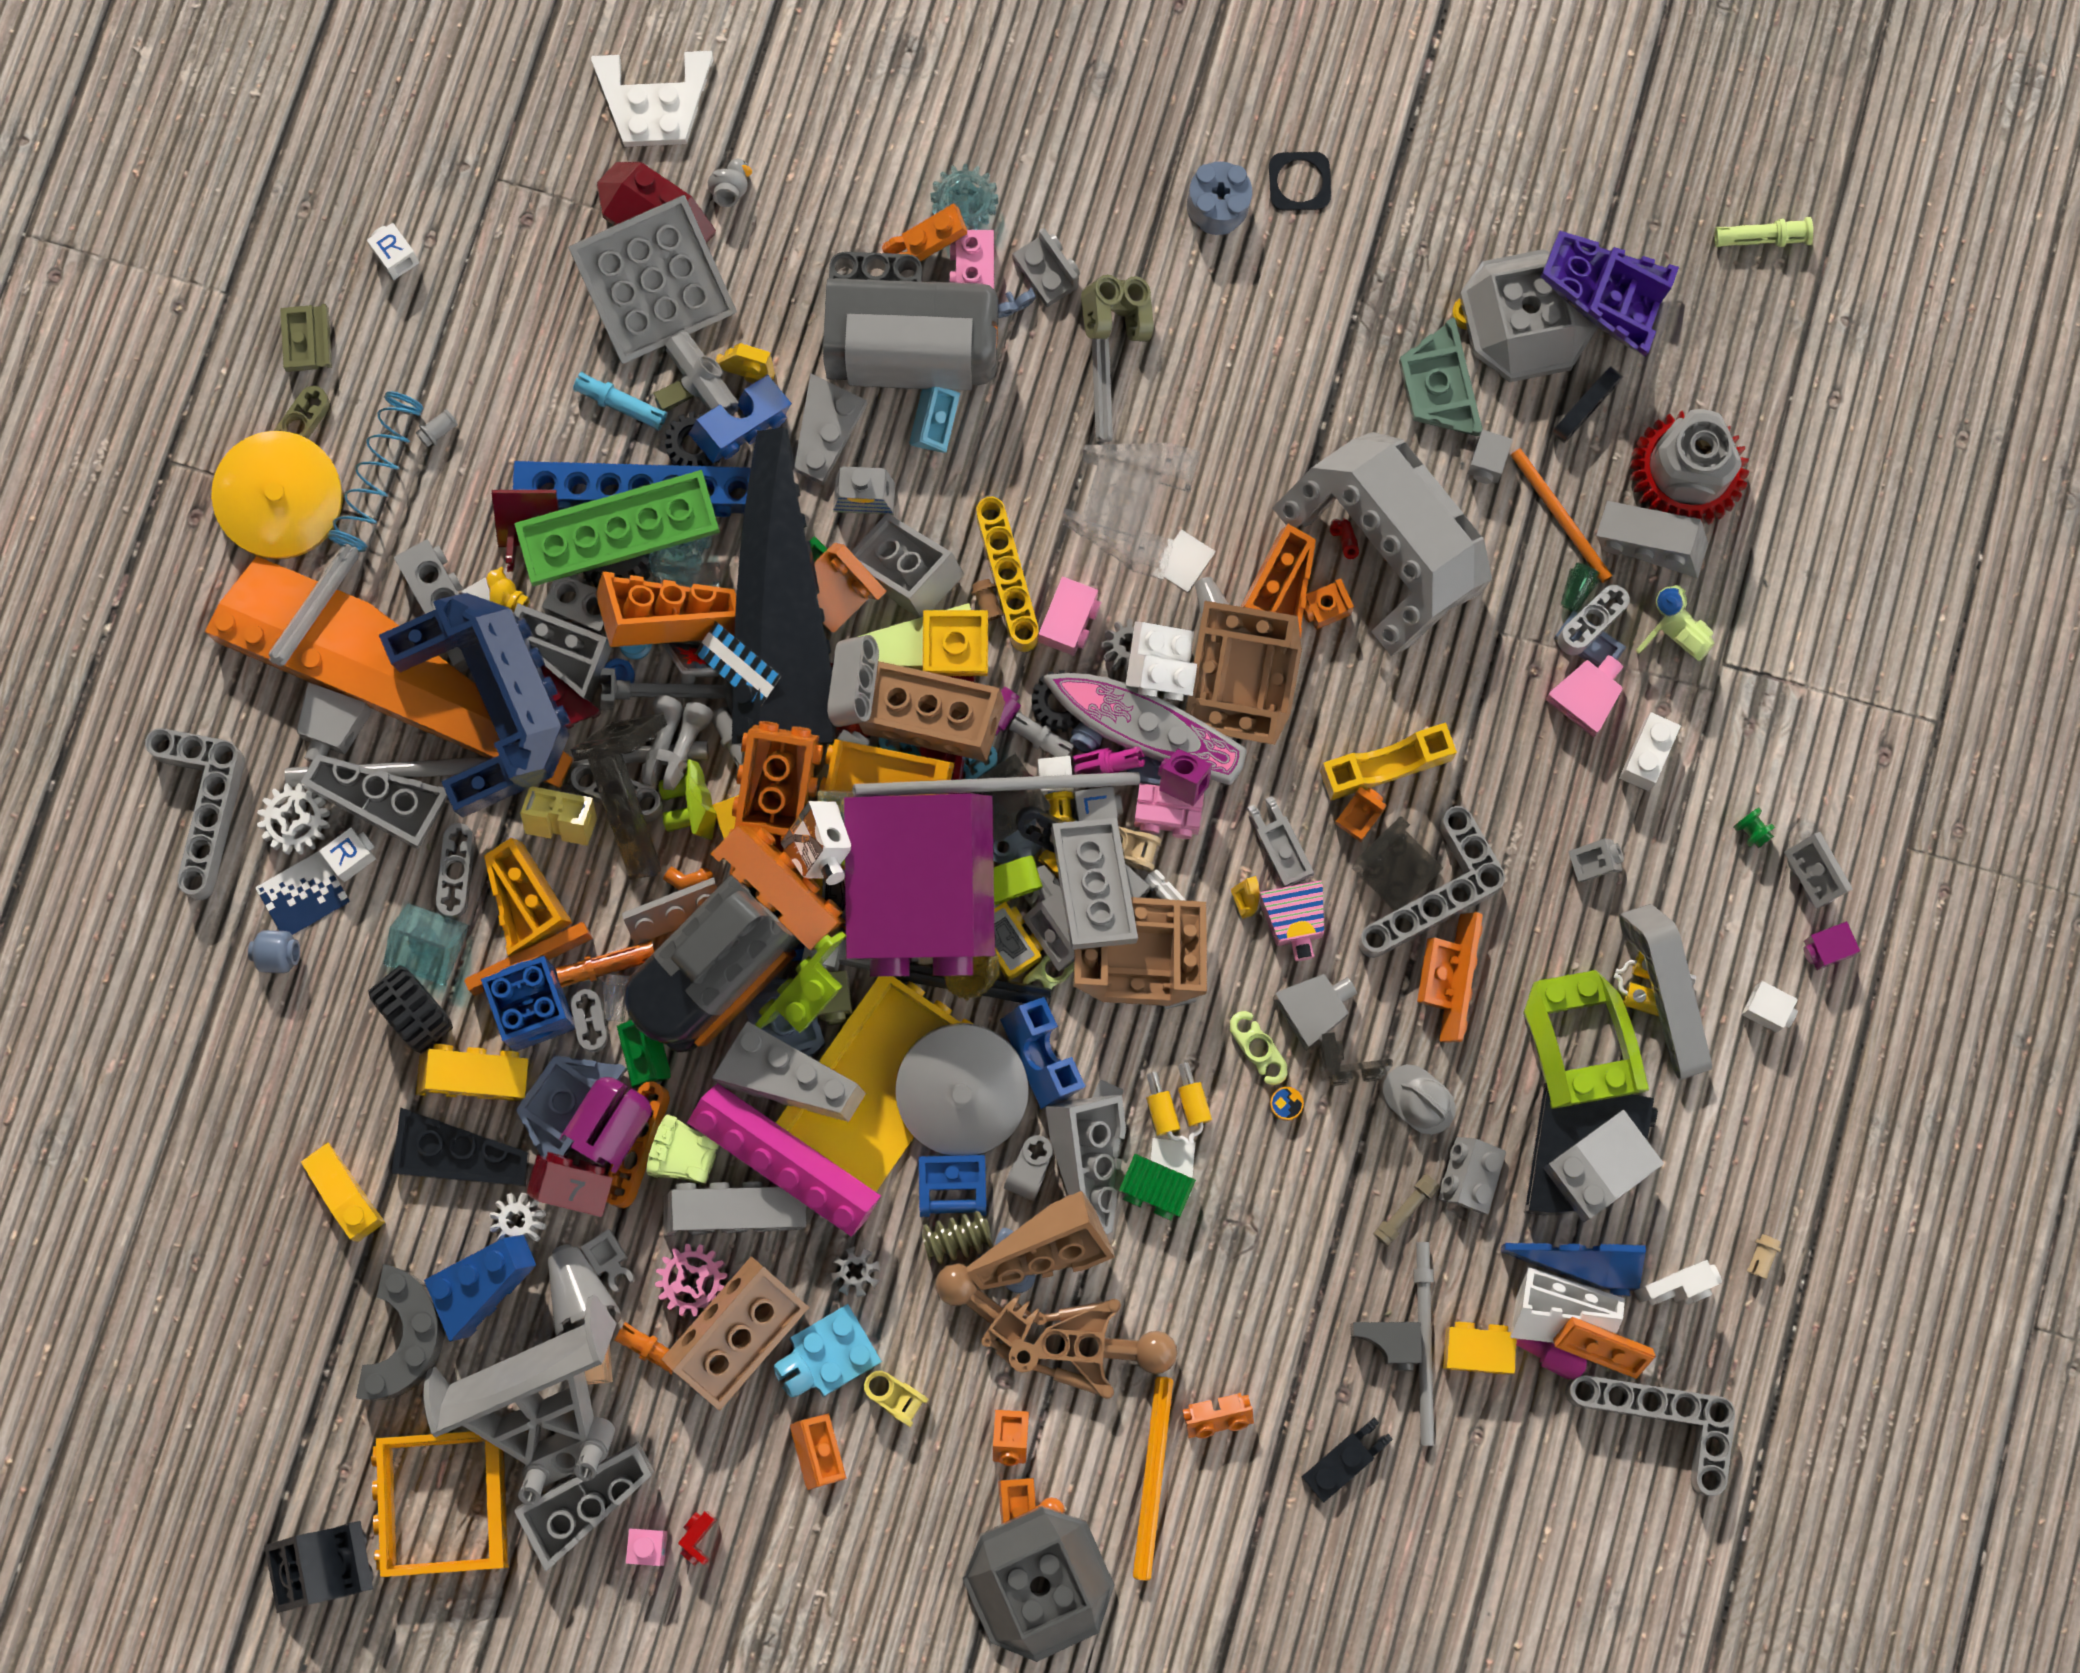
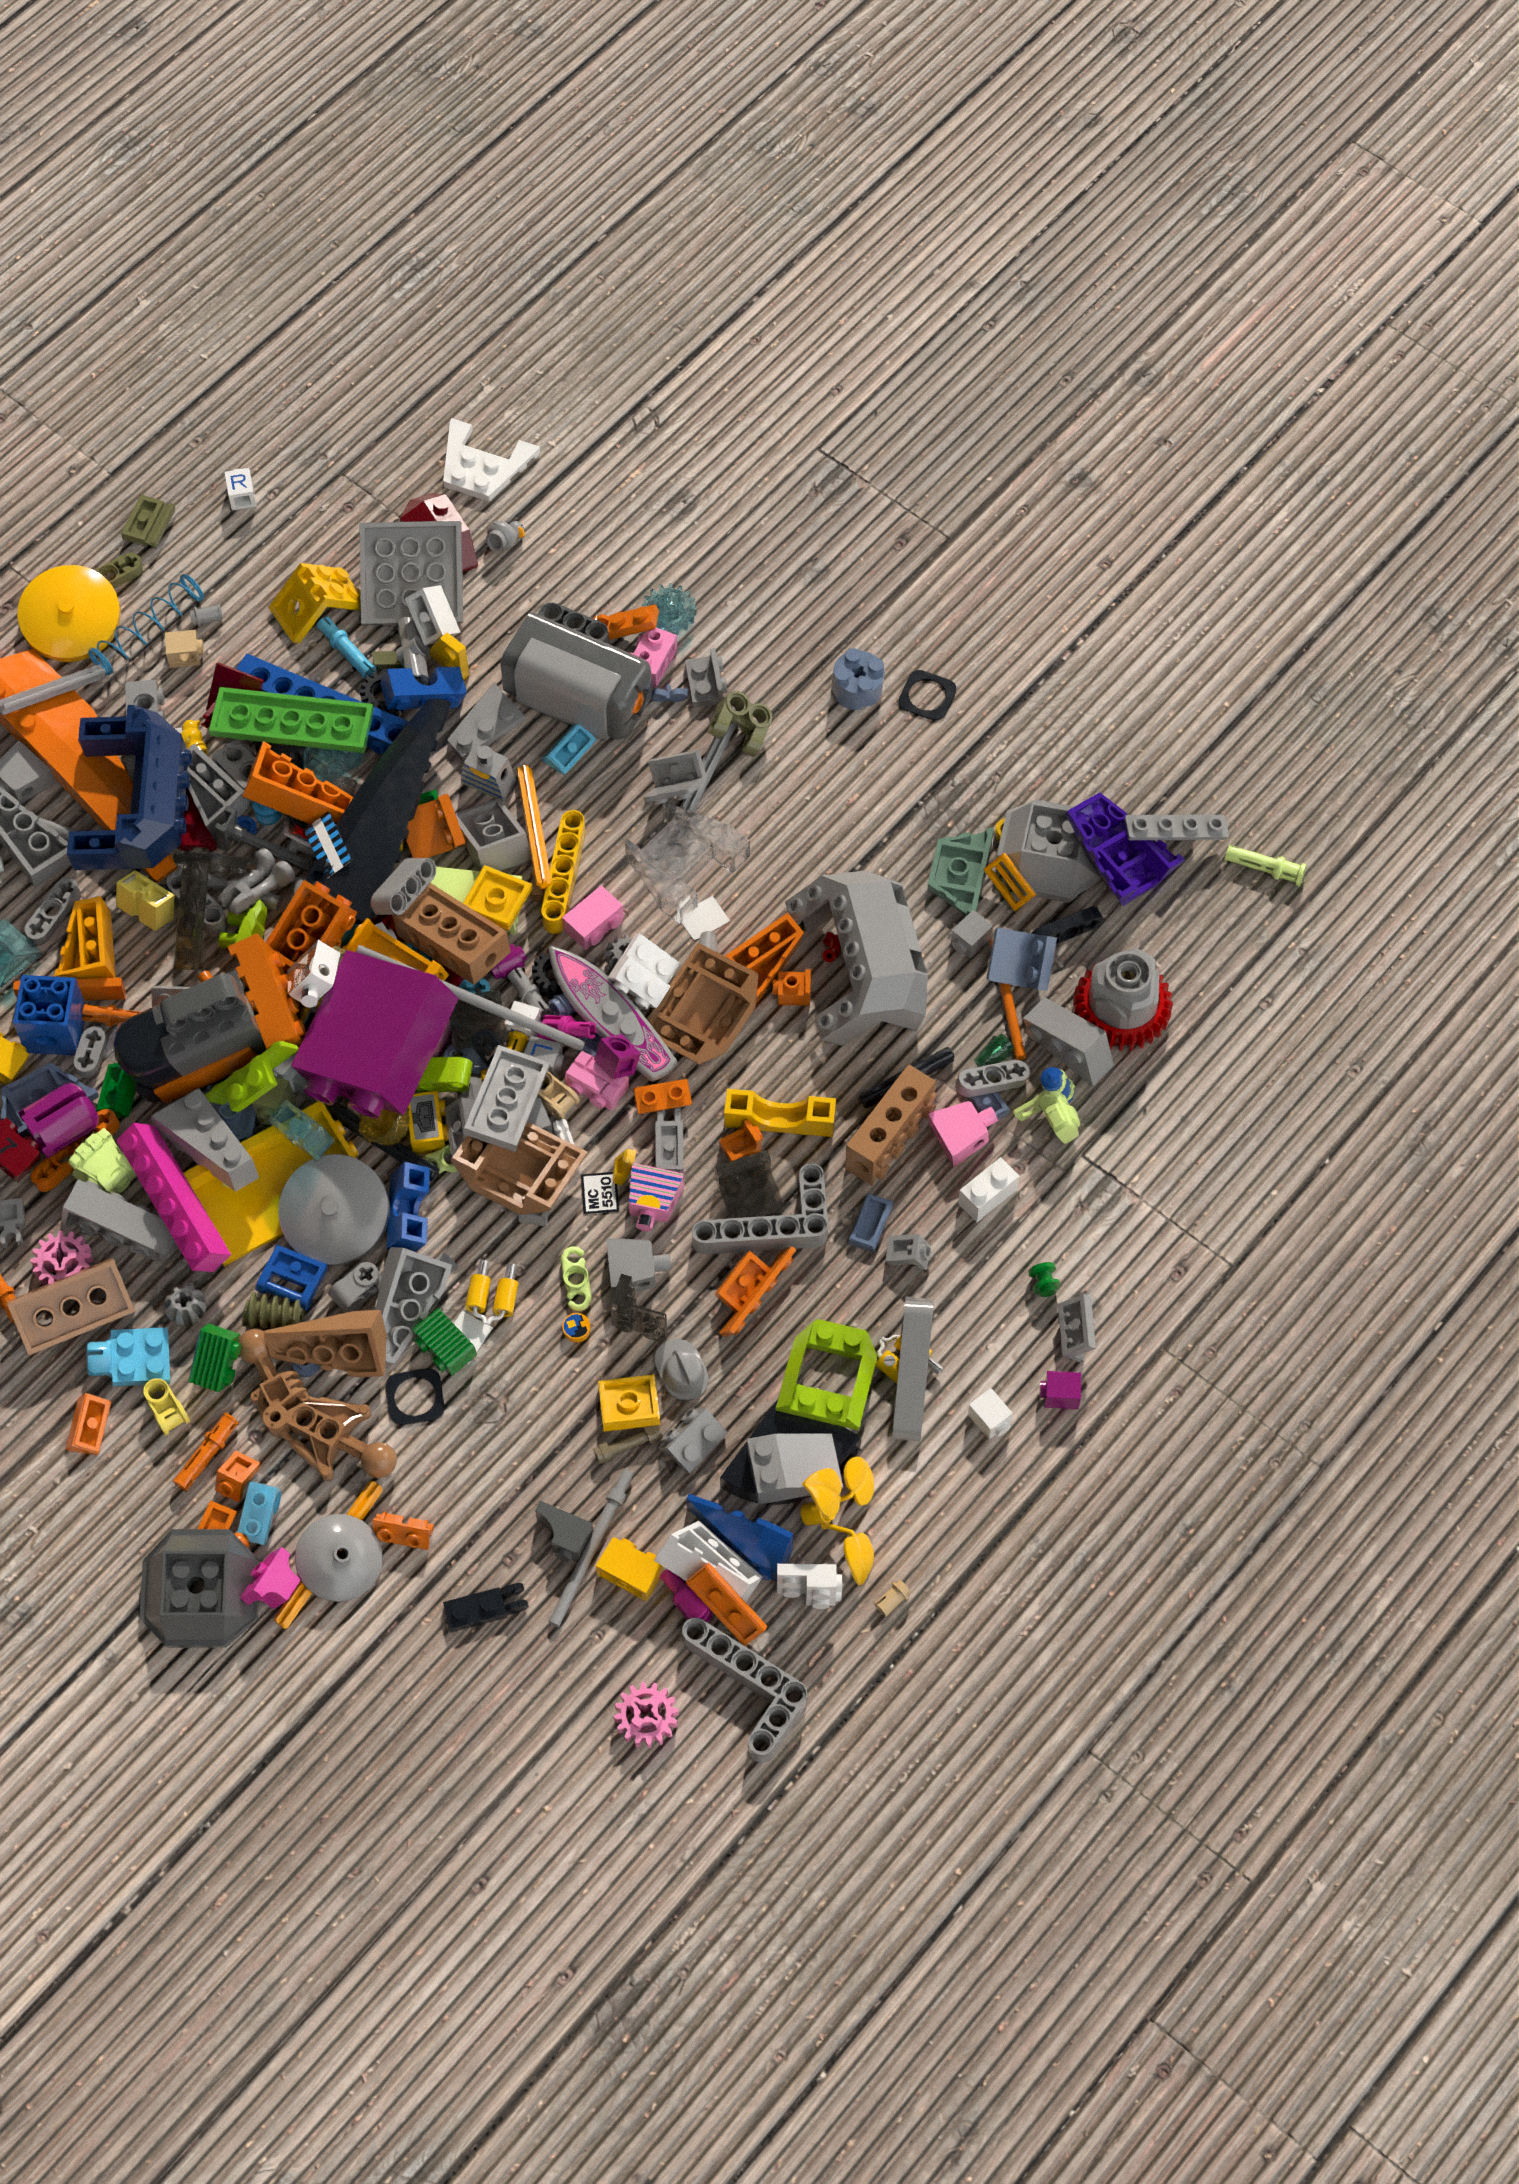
camera: 25 degrees right, 15 degrees down
(434, 482) = (183, 648): none -> tan brick
(557, 347) = (314, 589): none -> yellow bracket
(705, 324) = (432, 614): none -> white brick
(888, 1021) = (301, 1130): none -> clear light blue brick
(922, 1320) = (215, 1358): none -> green brick
(949, 535) = (534, 827): none -> light orange axle
(963, 1425) = (211, 1444): none -> orange pin
(1057, 1468) = (258, 1511): none -> medium azure plate
(1081, 410) = (675, 776): none -> light grey bracket
(1114, 1540) = (271, 1580): none -> dark pink brick
(1149, 1475) = (326, 1573): none -> light grey dish
(1181, 1269) = (435, 1411): none -> black piece
(1233, 936) = (599, 1193): none -> sticker
(1251, 798) = (662, 1096): none -> orange hinge
(1387, 1165) = (629, 1403): none -> yellow tile
(1490, 354) = (1017, 875): none -> light orange tile
(1497, 656) = (926, 1066): none -> black axle
(1518, 676) = (890, 1125): none -> medium nougat brick
(1539, 842) = (870, 1222): none -> sand blue tile
(1565, 465) = (1021, 959): none -> sand blue bracket
(1570, 1517) = (652, 1705): none -> bright pink gear
(1657, 235) = (1176, 827): none -> light grey bracket
(1663, 1192) = (825, 1490): none -> yellow plant

